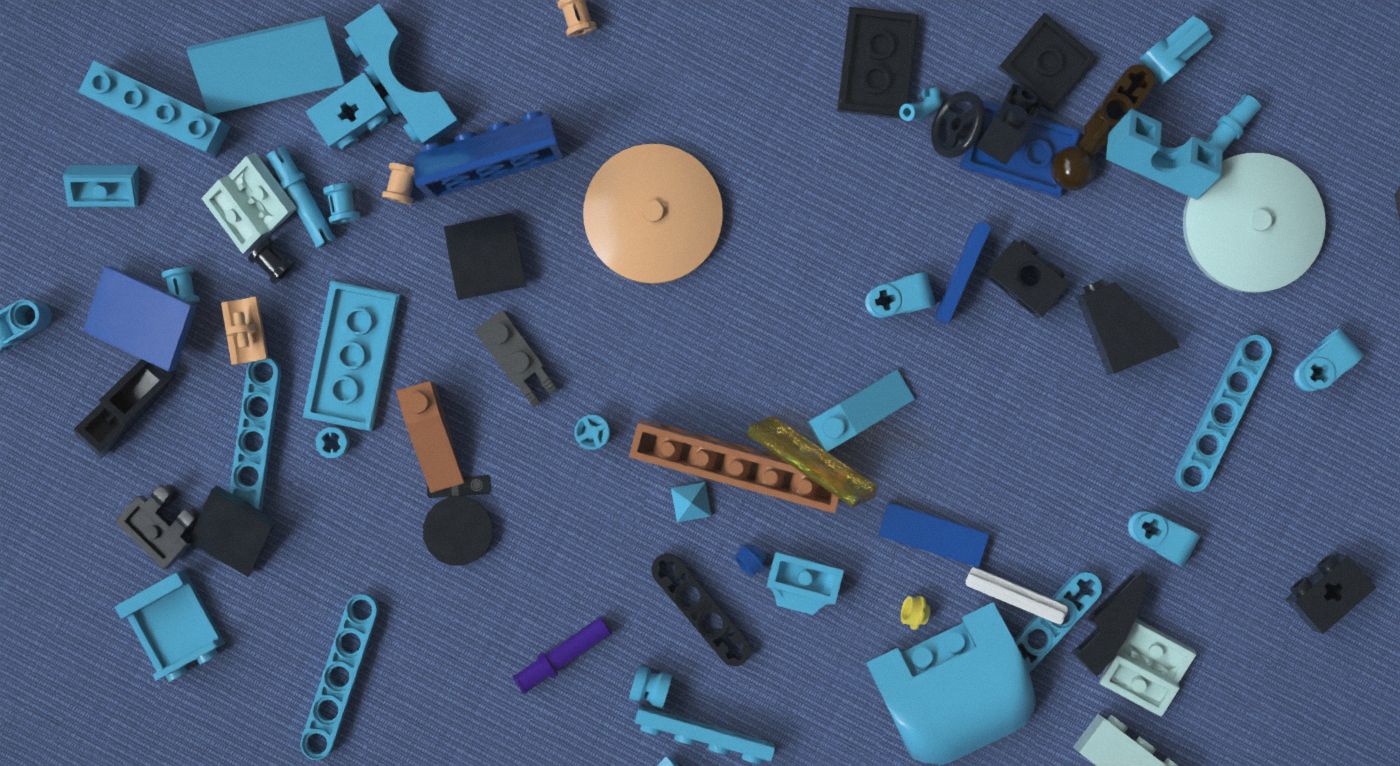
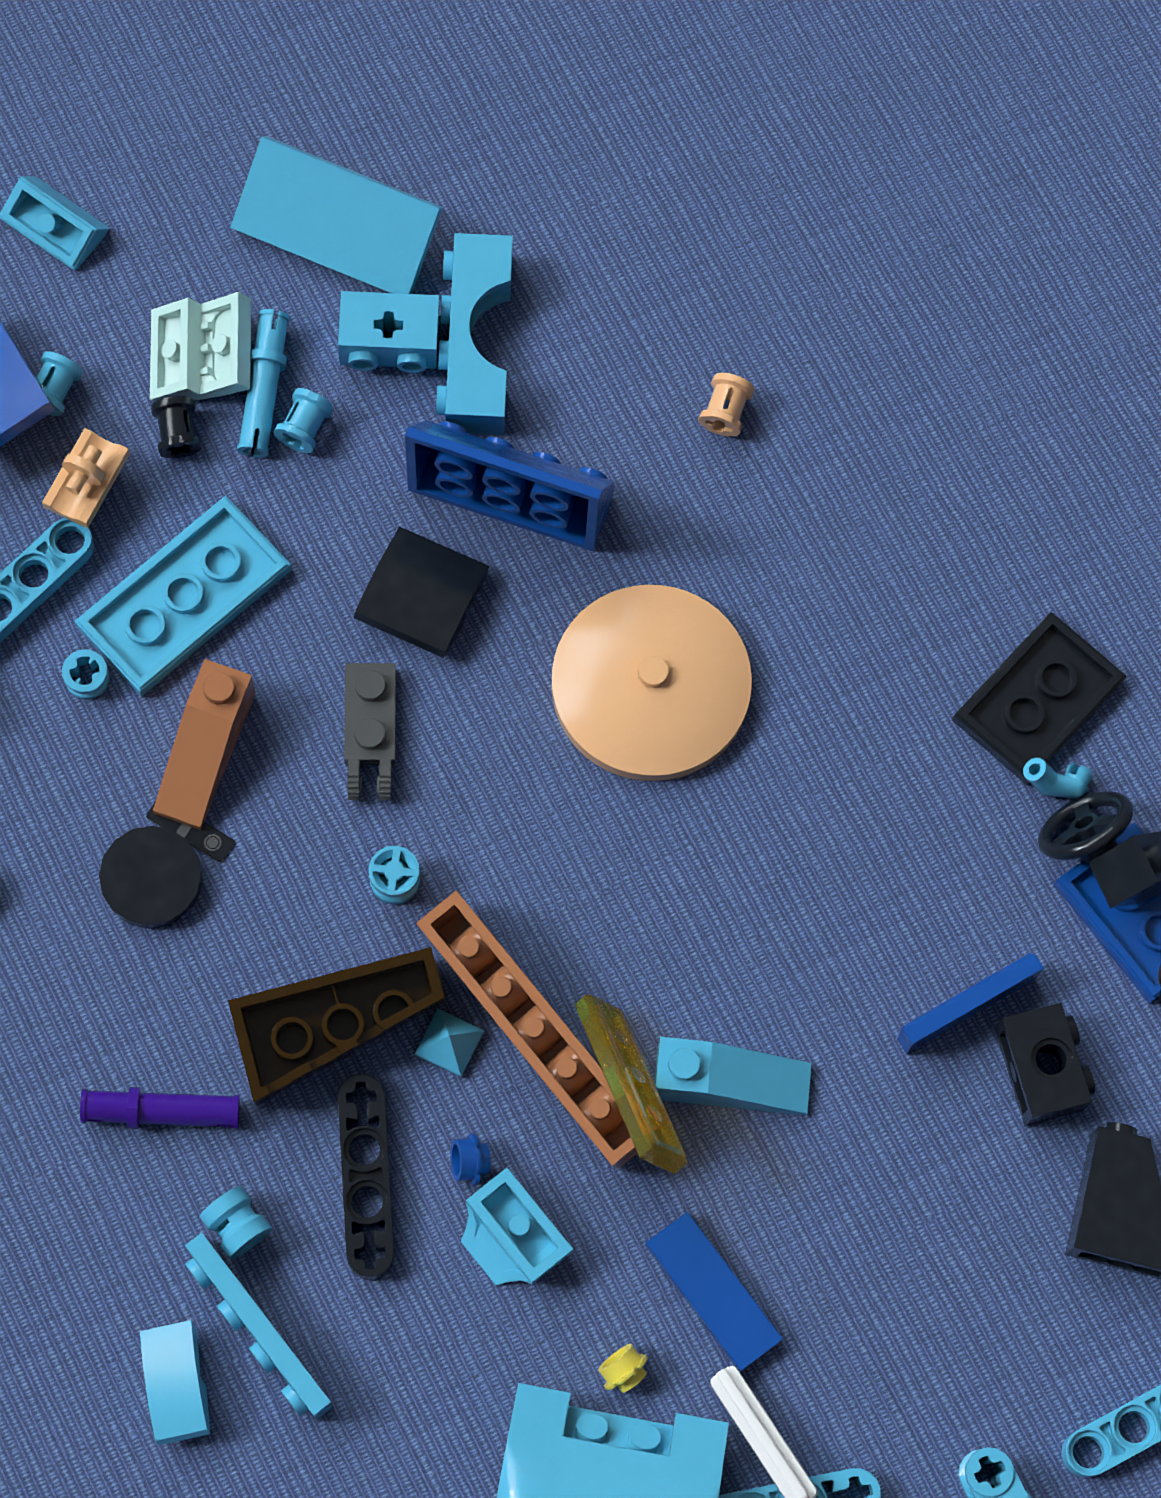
camera: 30 degrees right, 15 degrees down
(154, 109) = (176, 179): medium azure brick -> none
(400, 184) = (384, 446): light nougat bush -> none
(612, 548) = (318, 1021): none -> dark brown wedge
(906, 295) = (882, 981): medium azure piece -> none

